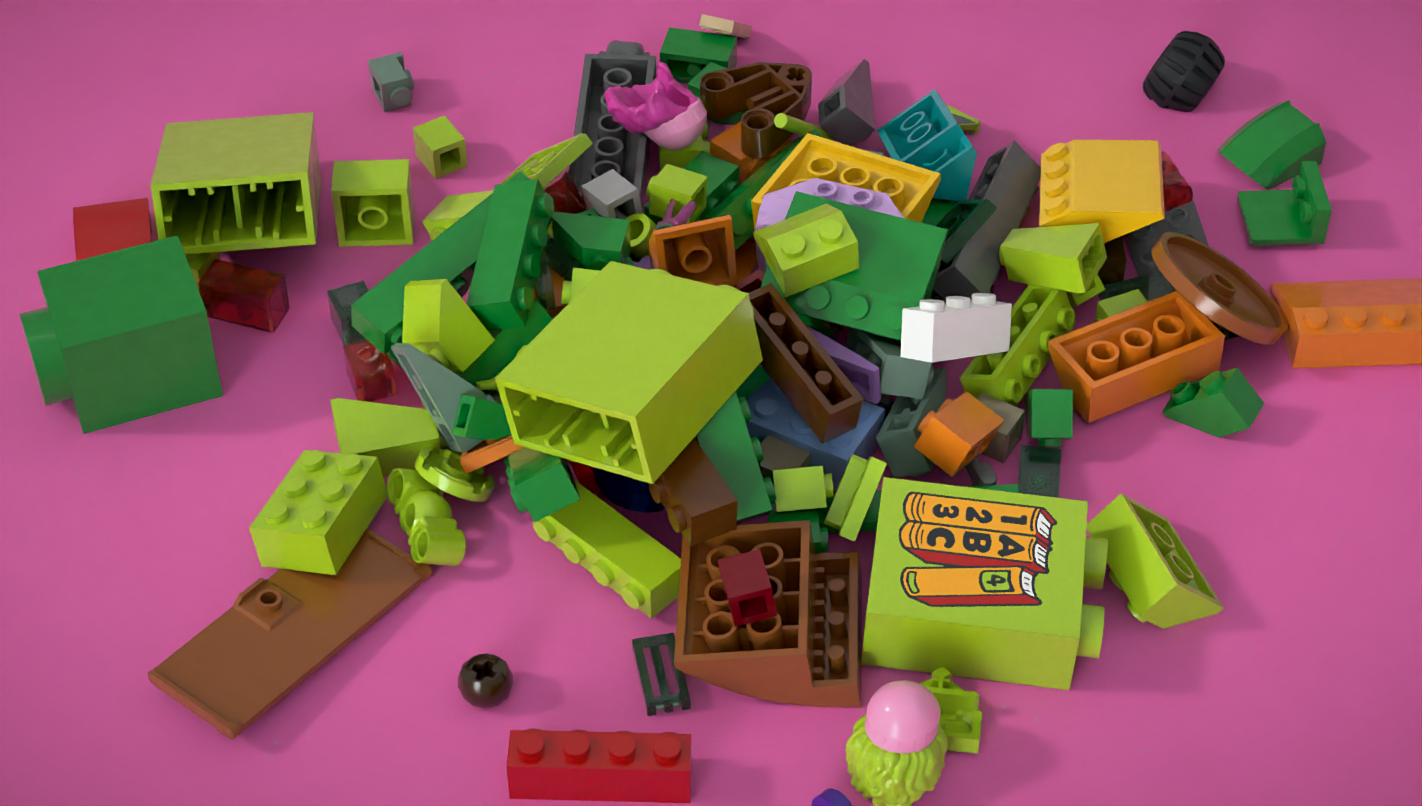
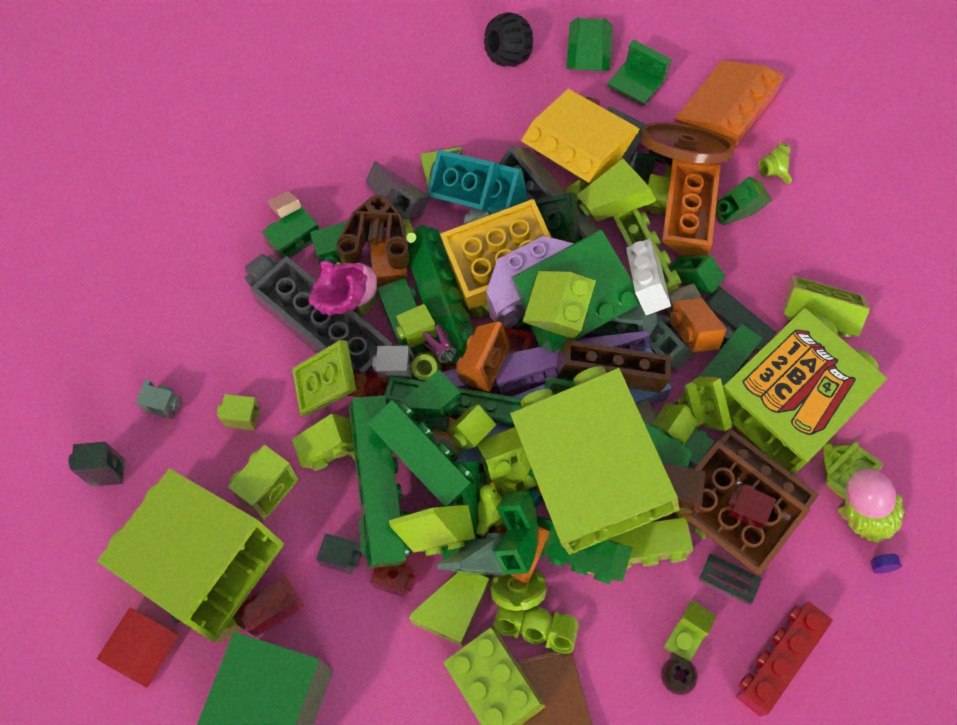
camera: 50 degrees left, 20 degrees up
(273, 76) = (97, 463): none -> brick
(564, 668) = (690, 631): none -> lime slope
(1321, 408) = (776, 163): none -> lime animal

